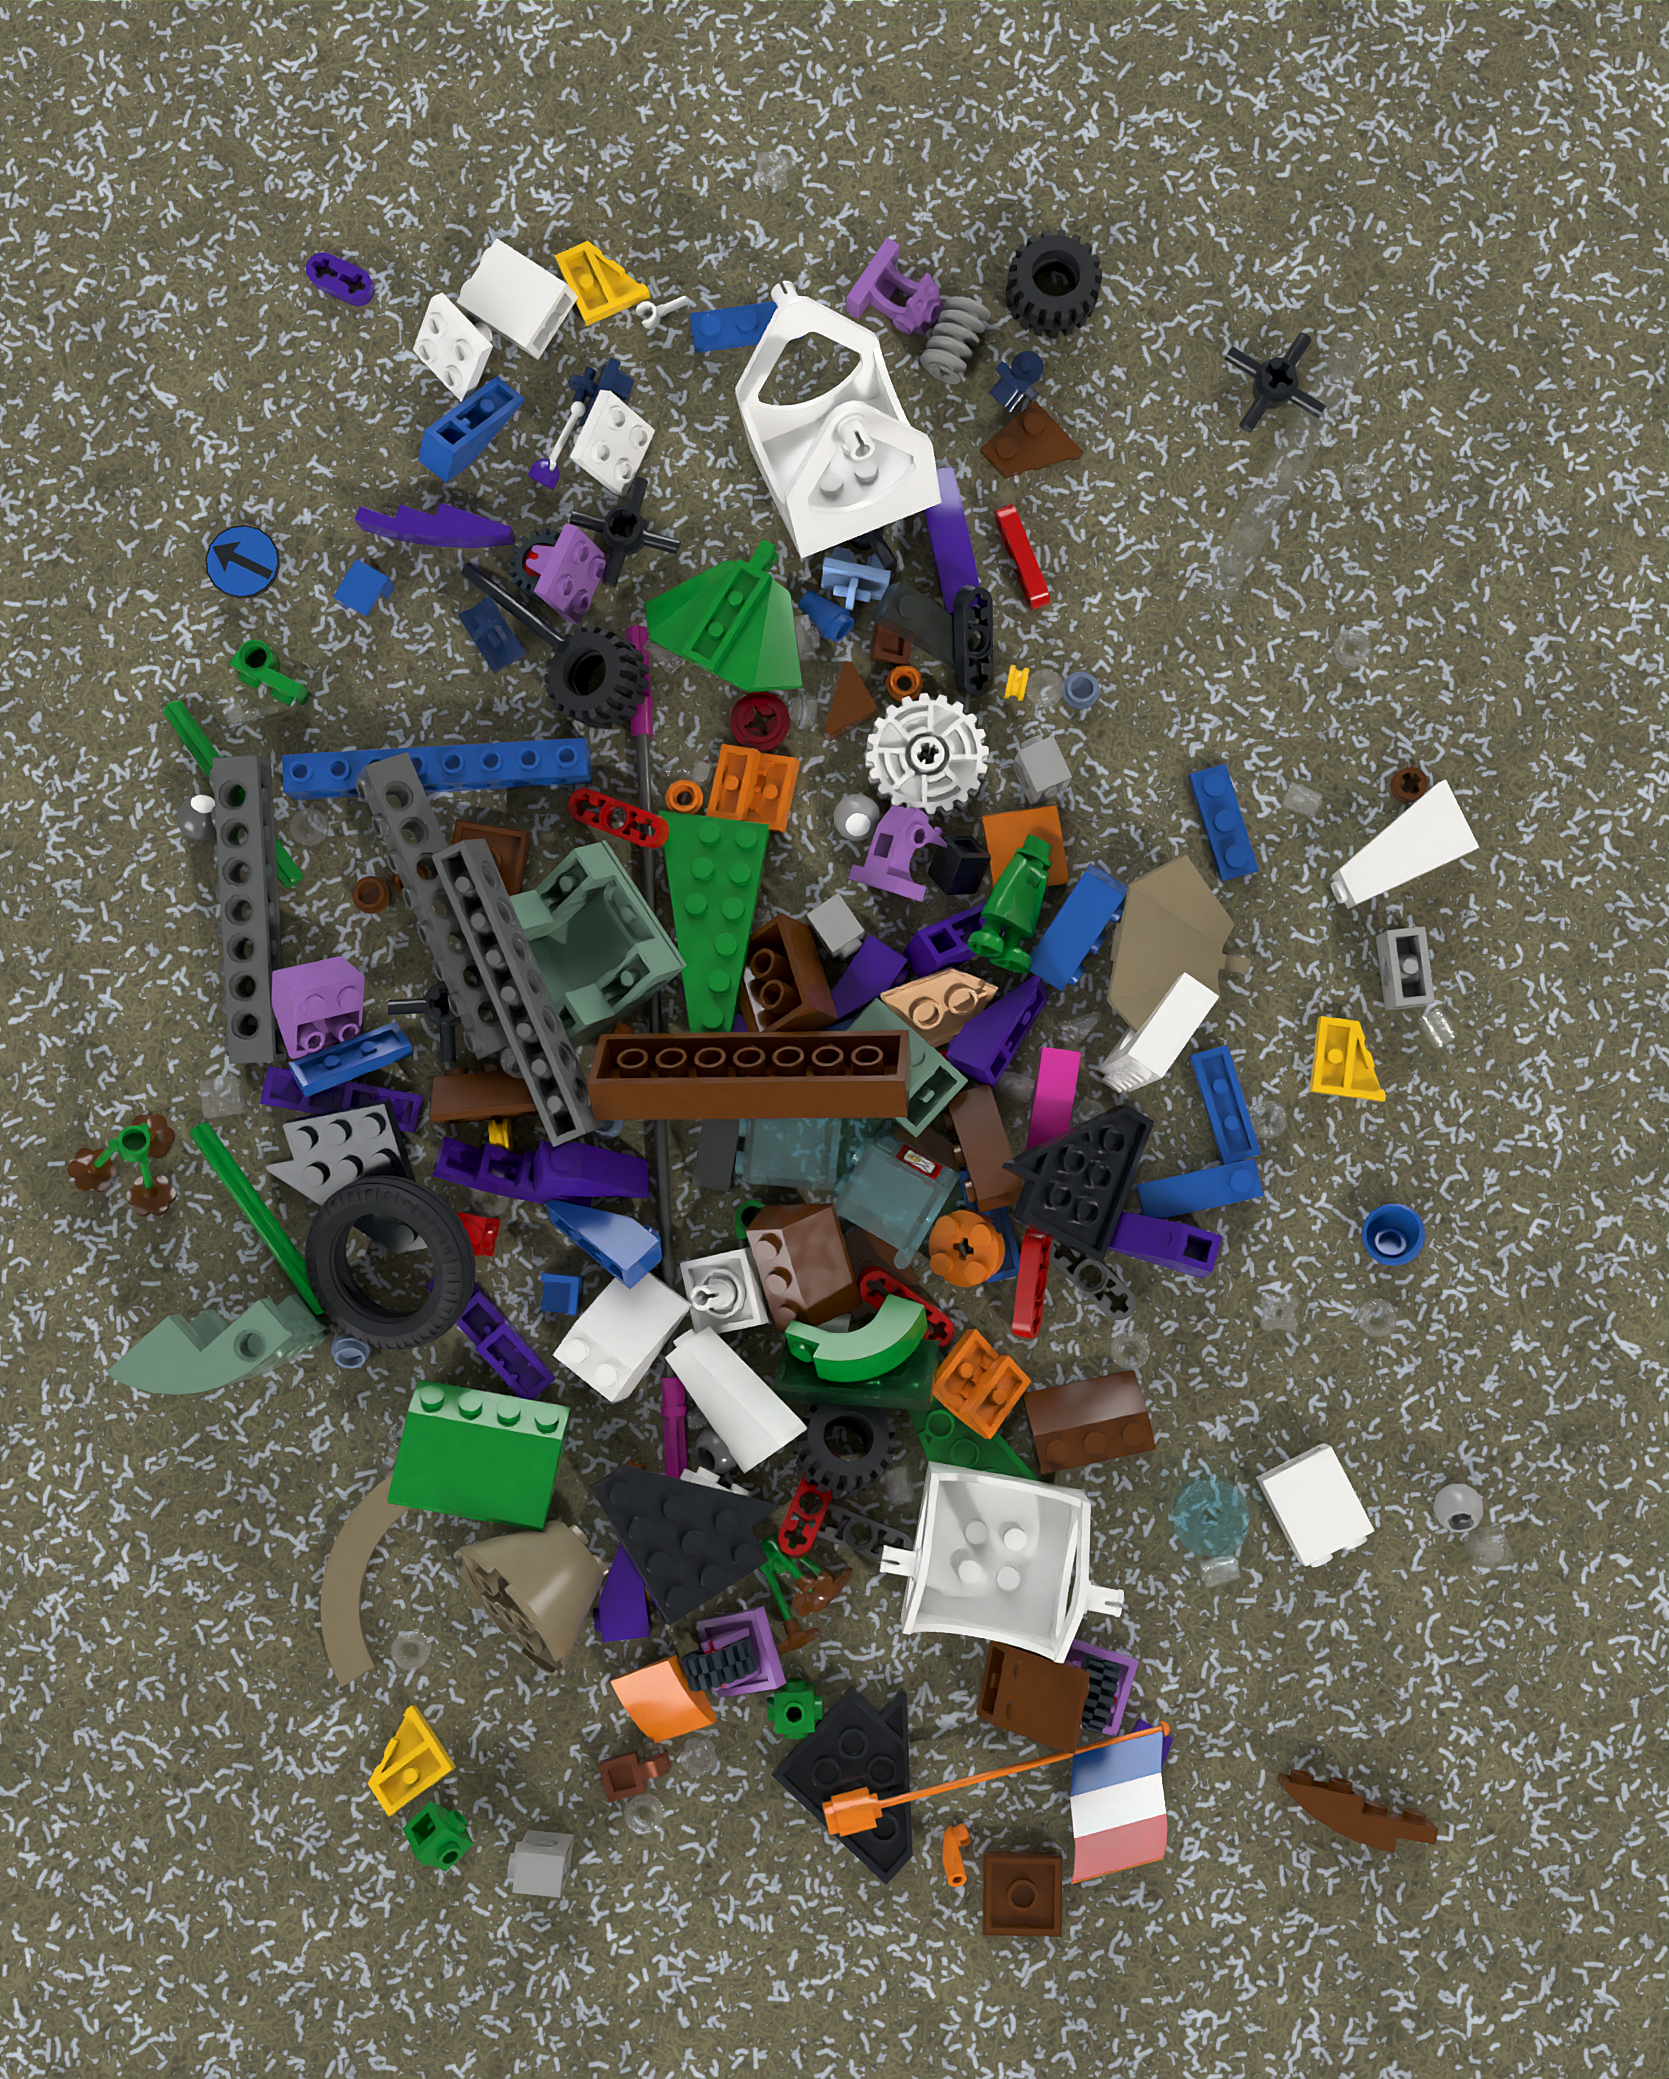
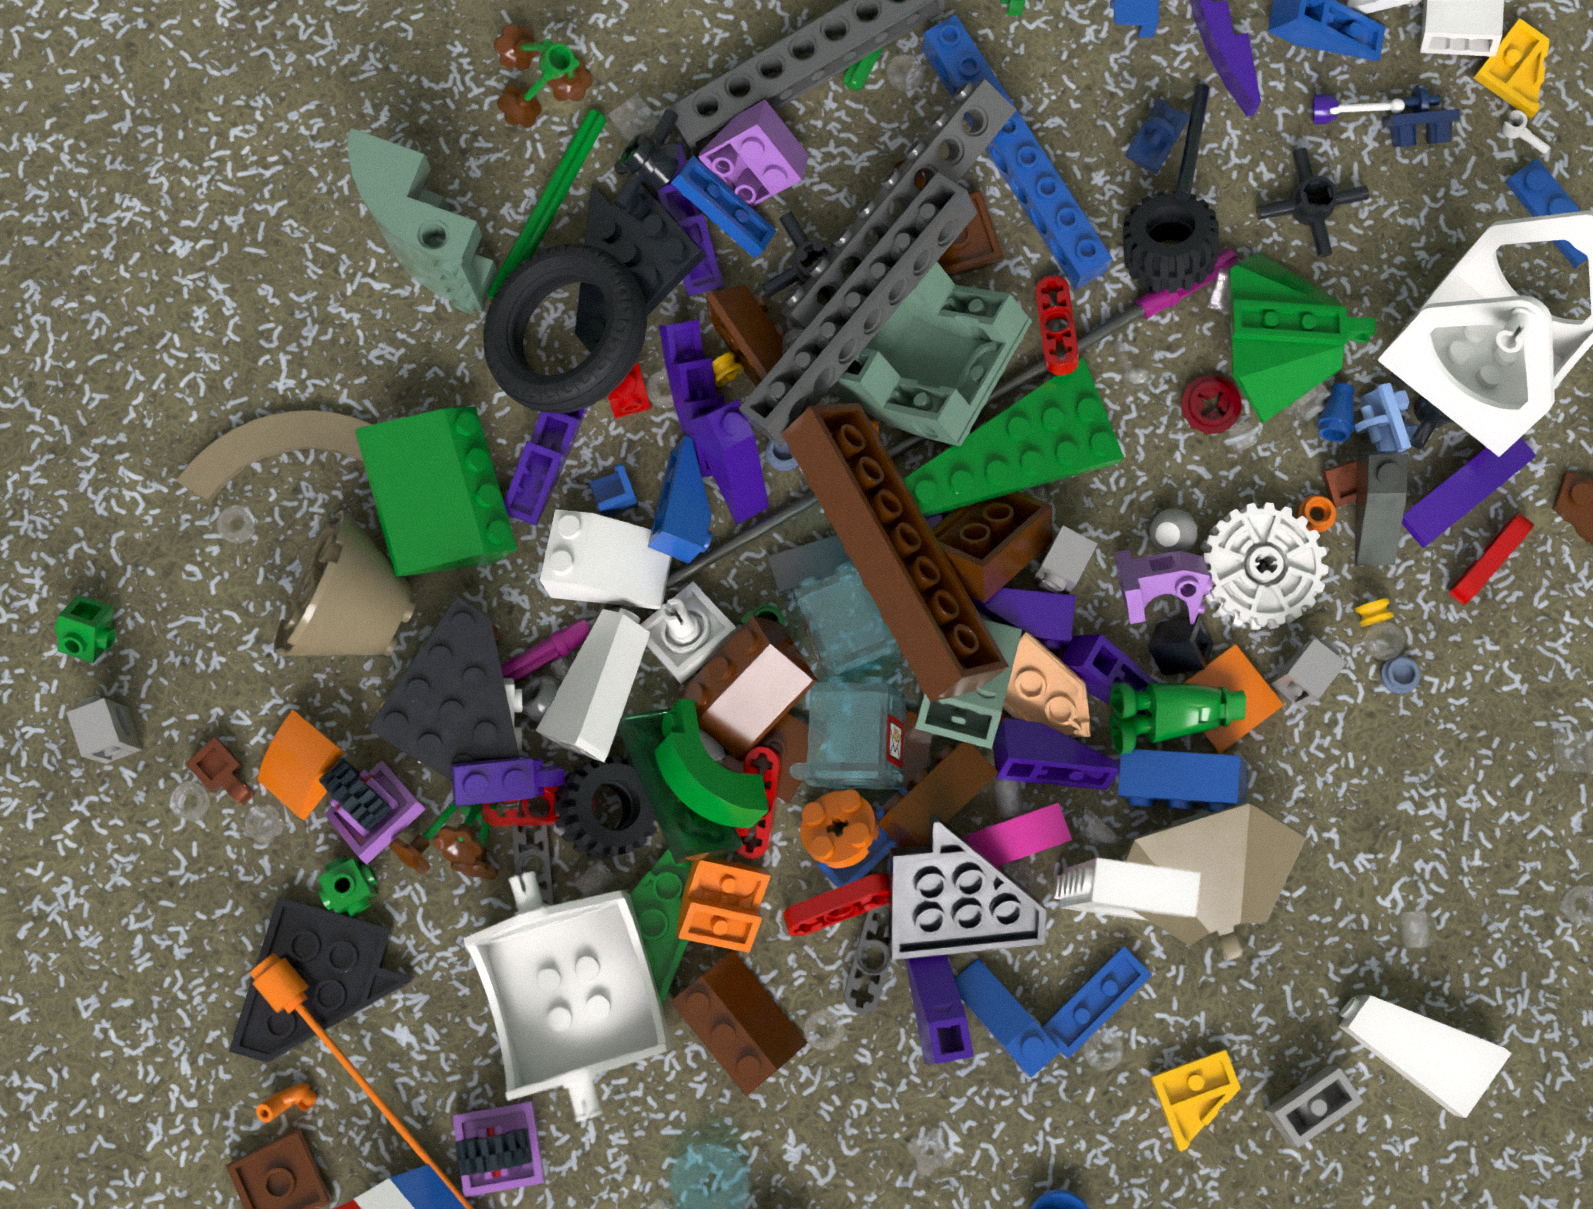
camera: 60 degrees right, 5 degrees down
(271, 1106) = (648, 160): none -> black bar
(349, 1352) = (469, 338): sand blue plate -> none
(371, 895) = (875, 154): reddish brown plate -> none
(410, 1763) = (137, 574): yellow wing -> none
(559, 570) = (1247, 163): medium lavender plate -> none
(612, 443) = (1384, 149): white plate -> none
(623, 1603) = (365, 685): dark purple slope -> none
(680, 787) = (1112, 365): orange plate -> none
(753, 787) = (1150, 429): orange slope -> none
(775, 1525) = (502, 780): none -> dark purple hinge
(850, 706) = (1270, 474): reddish brown slope -> none
(962, 629) = (1395, 536): black beam -> none
(1033, 1695) = (465, 1095): reddish brown slope -> none
(1223, 823) = (1353, 867): blue plate -> none
(1420, 788) = (1484, 1011): reddish brown bush -> none
(1437, 1028) = (1274, 1167): clear hinge -> none

